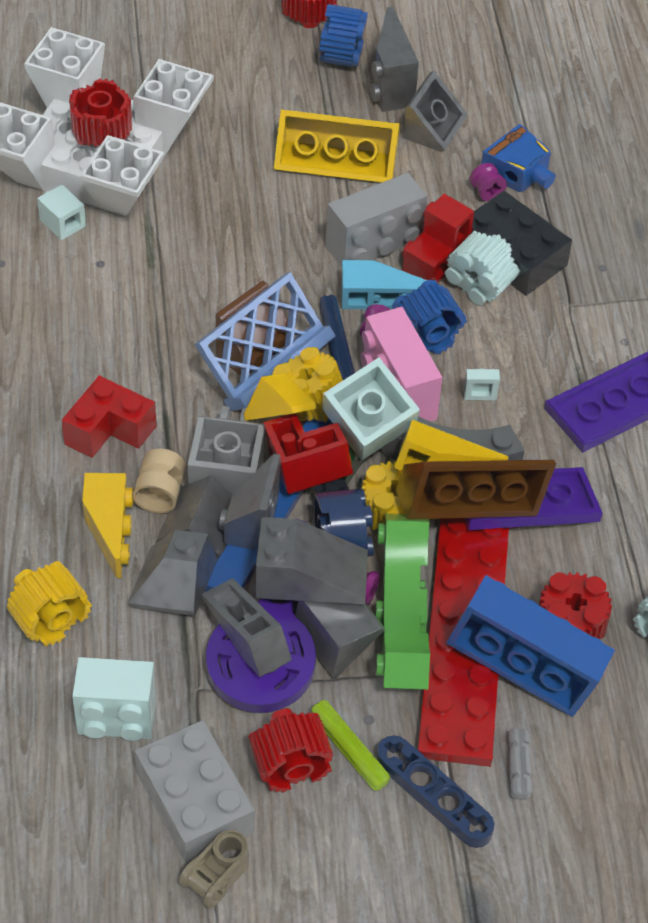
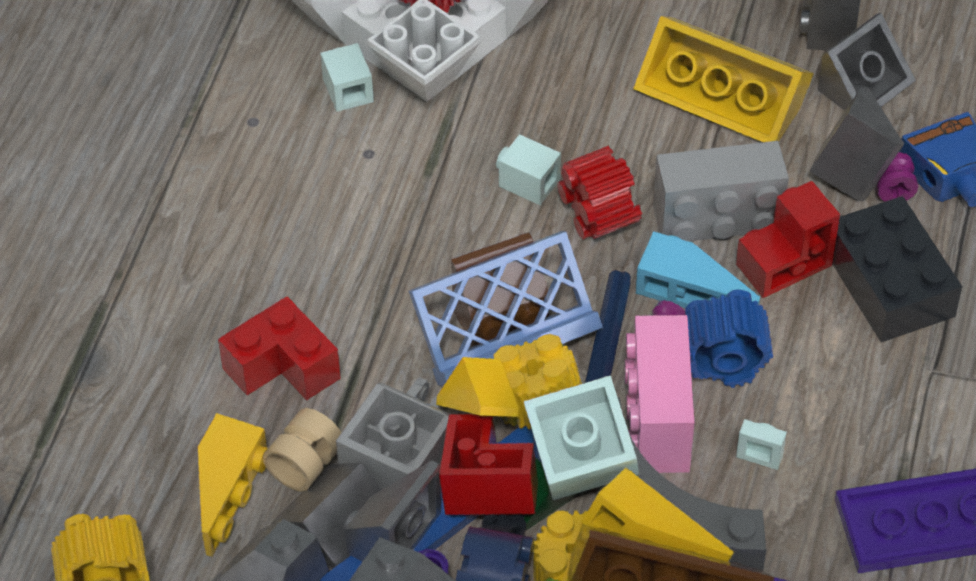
camera: 25 degrees right, 0 degrees up
(227, 242) = (529, 169): none -> light aqua brick
(290, 243) = (599, 193): none -> red brick
(456, 165) = (858, 148): none -> flat silver slope
(482, 267) = (829, 290): light aqua brick -> none

